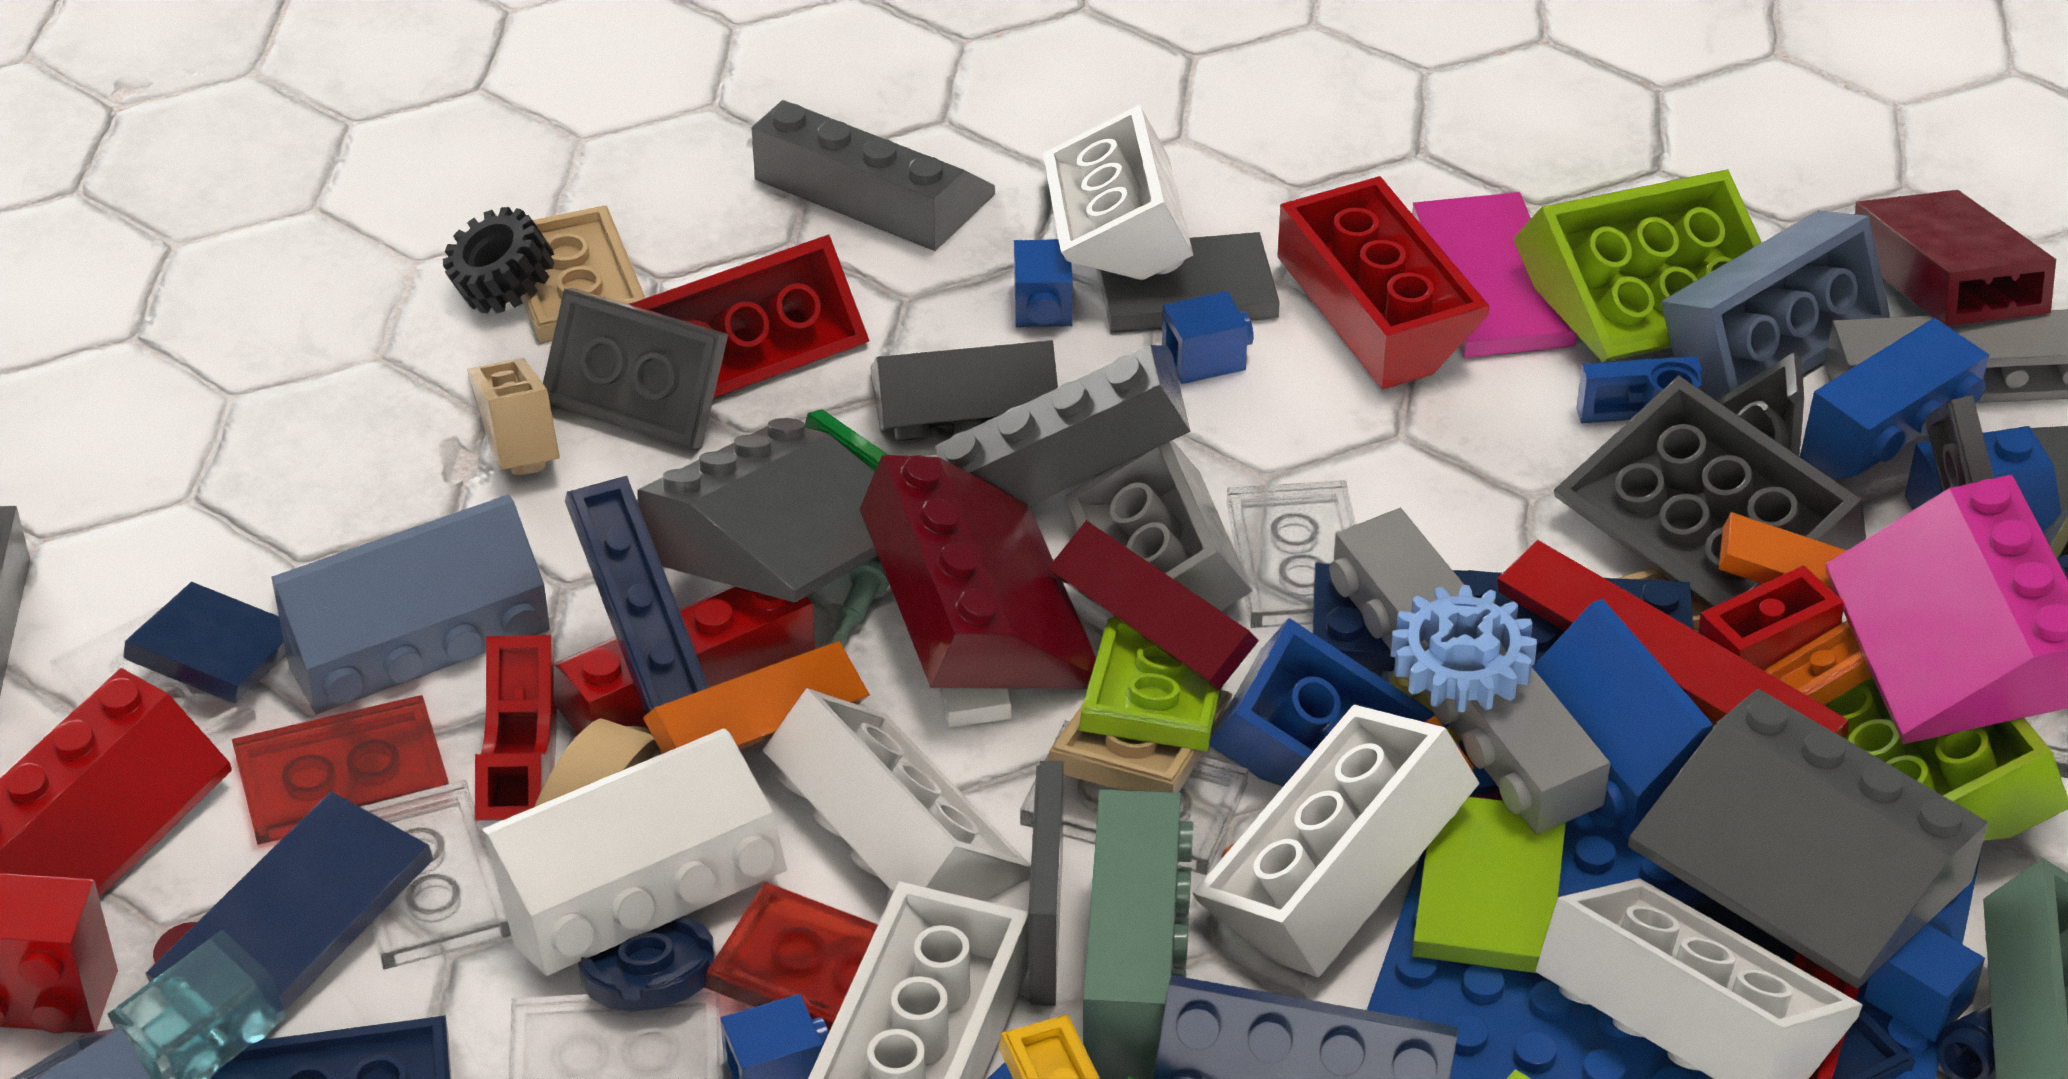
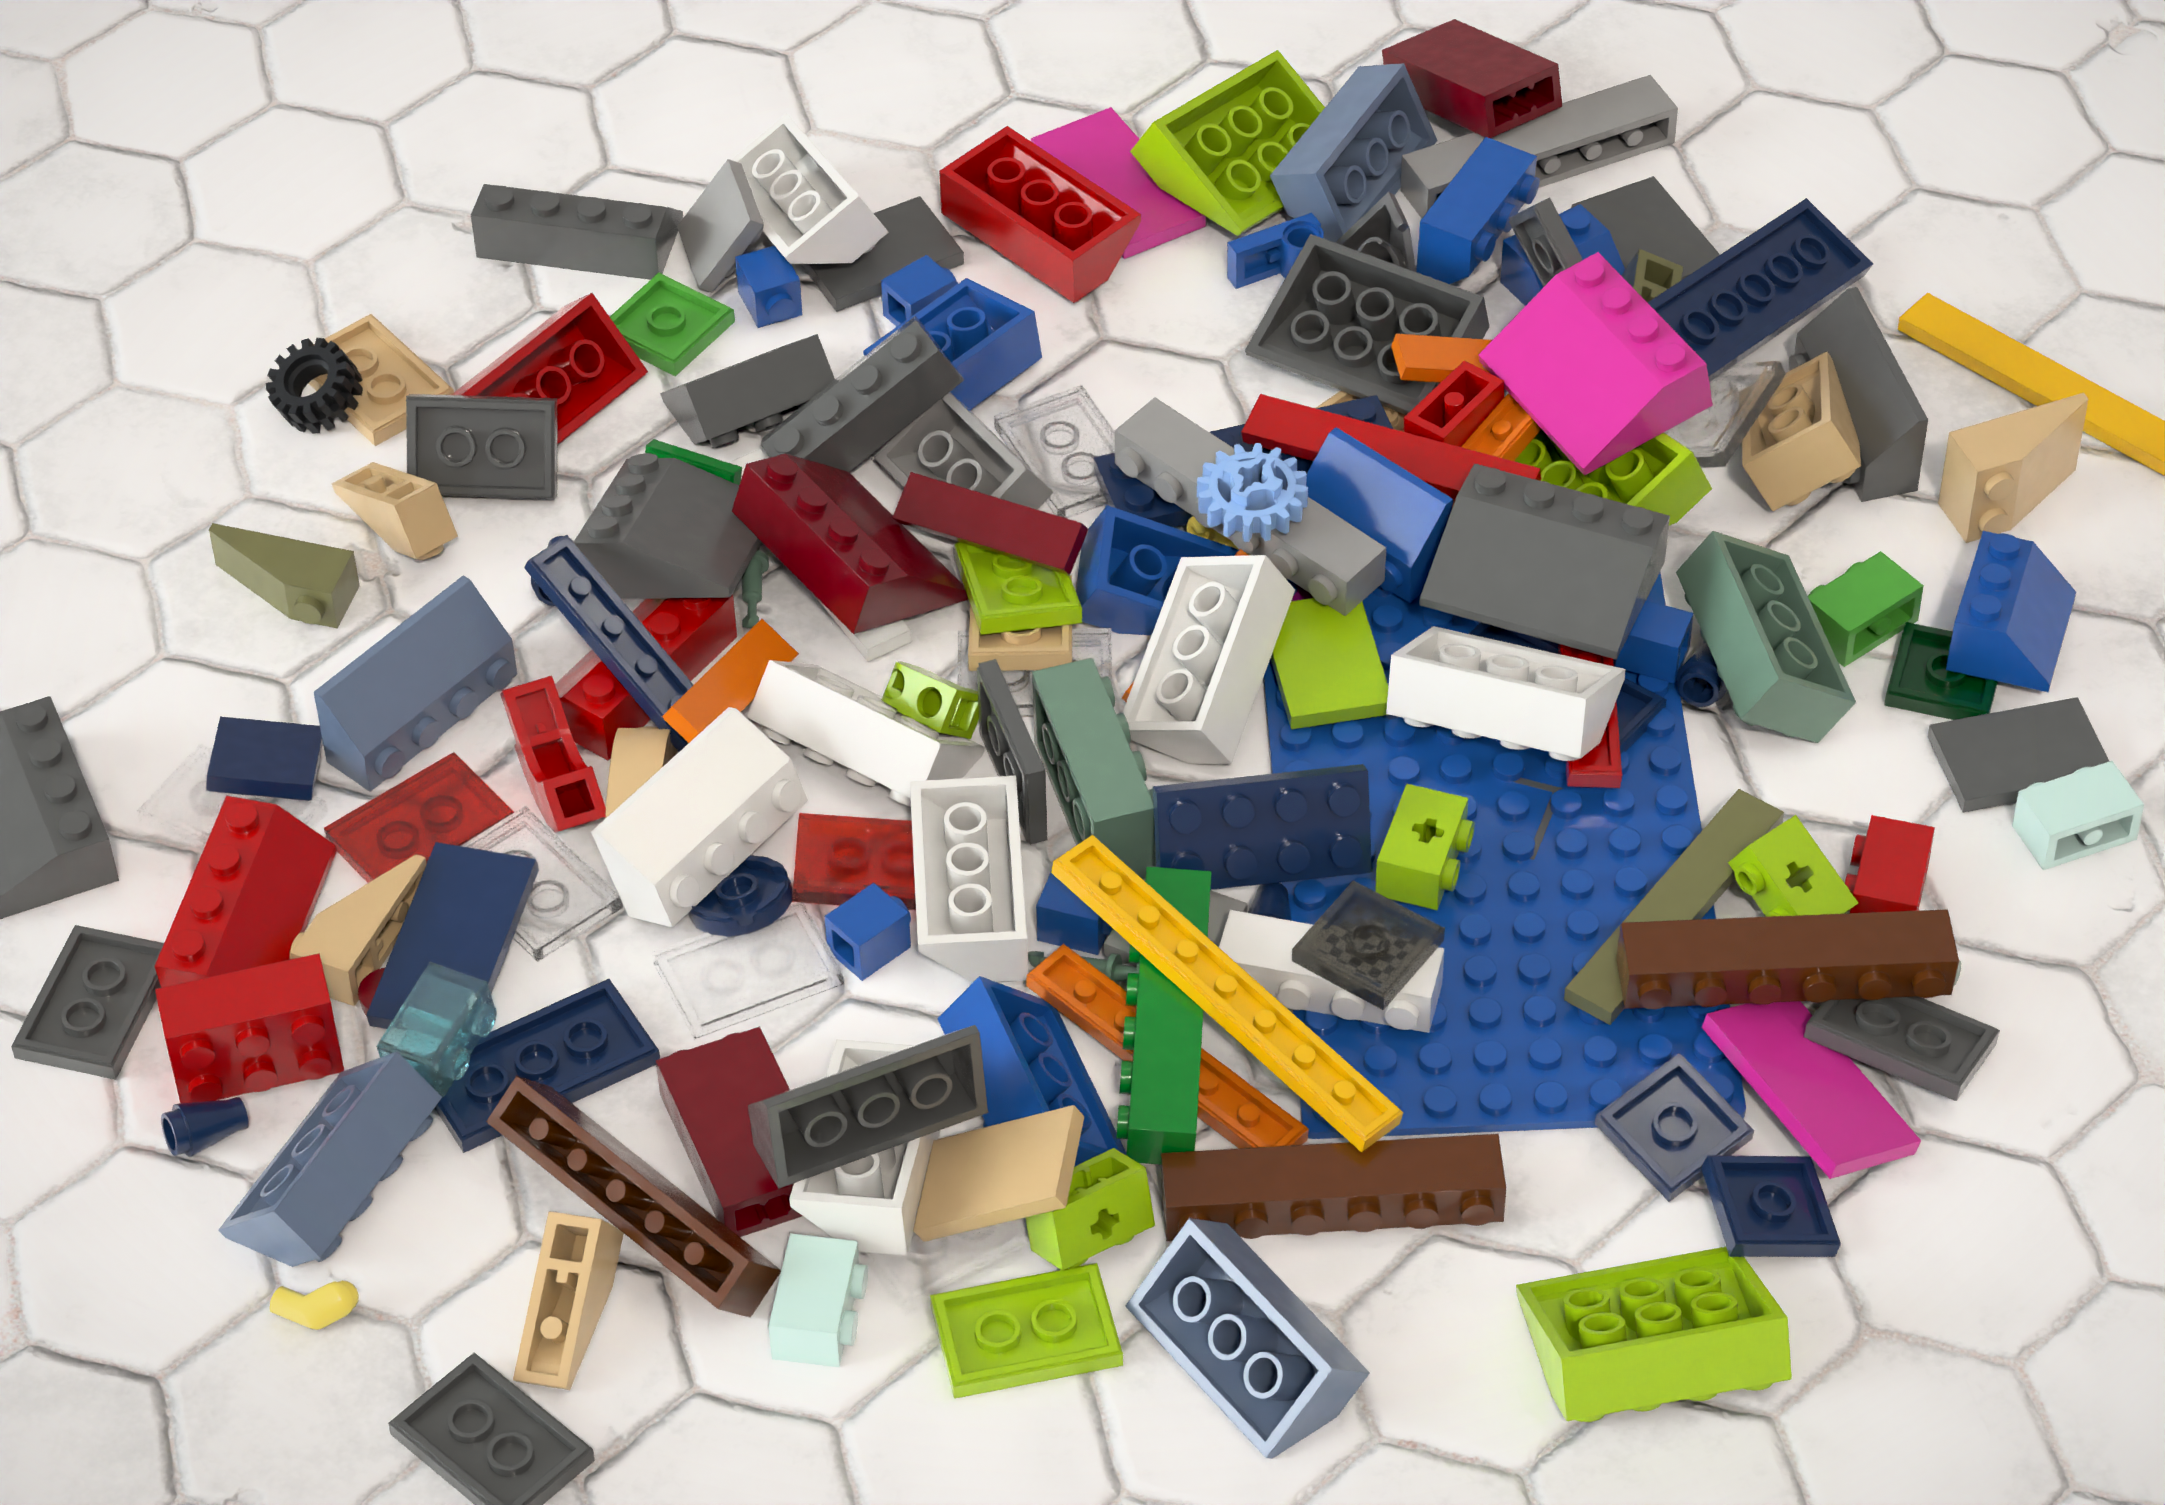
camera: 20 degrees left, 5 degrees up
(187, 869) = (360, 929): none -> tan slope
(368, 456) = (292, 575): none -> olive slope
(918, 297) = (671, 323): none -> bright green tile
(988, 793) = (932, 700): none -> lime leg
(1018, 206) = (720, 226): none -> light grey tile
(1242, 400) = (982, 336): none -> blue slope

